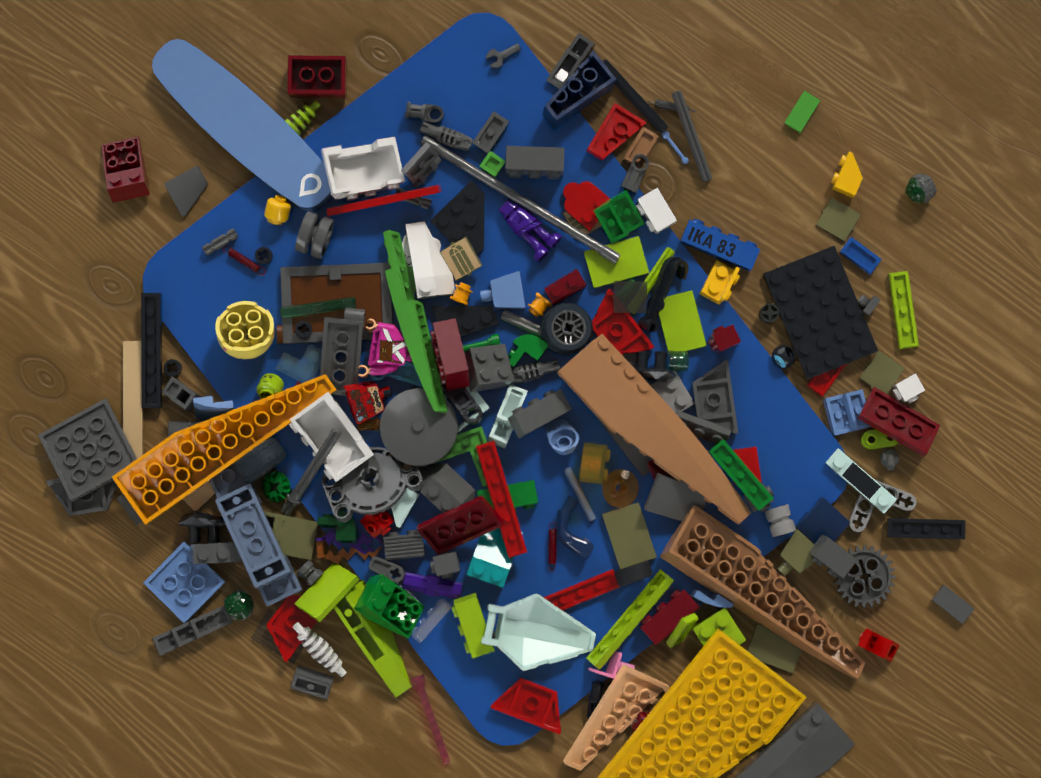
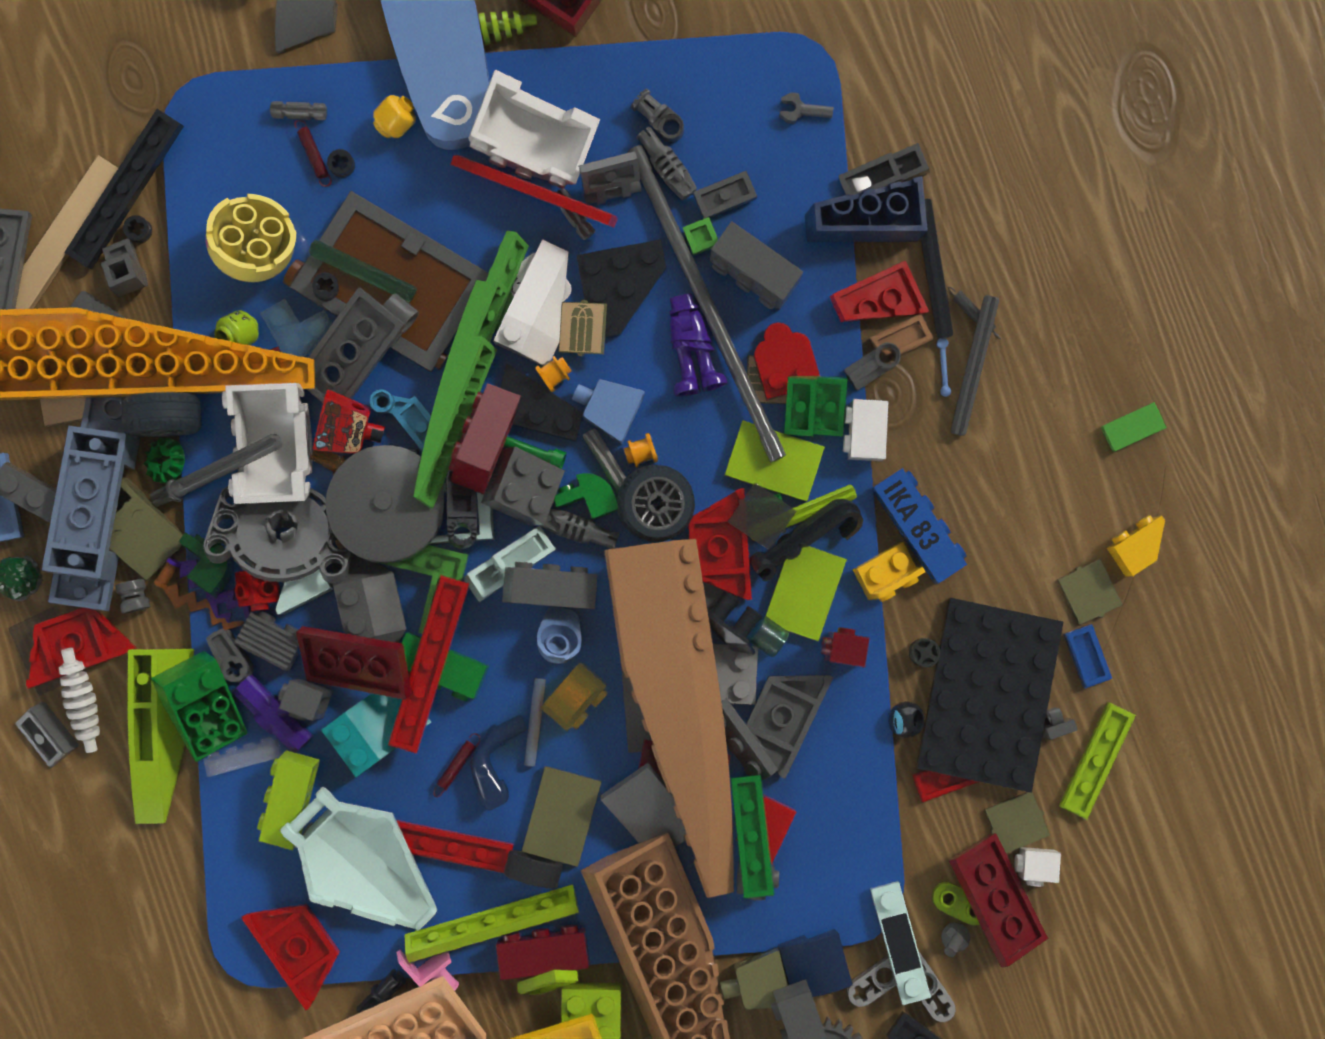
camera: 30 degrees right, 0 degrees up
(196, 520) = (37, 437): black connector -> none
(206, 409) = (141, 307): medium blue slope -> none
(314, 235) = (418, 176): dark grey wheel -> none
(327, 591) = (134, 634): lime tile -> none
(387, 349) = (410, 381): torso -> none
(418, 683) = (175, 825): clear pink piece -> none
(565, 287) = (688, 449): dark red brick -> none
(628, 488) = (595, 759): clear orange dish -> none
(715, 600) = (614, 971): medium blue slope -> none
(780, 520) = (764, 923): light grey wheel -> none
(843, 412) = (936, 840): medium blue slope -> none
(921, 188) = (1221, 622): piece -> none

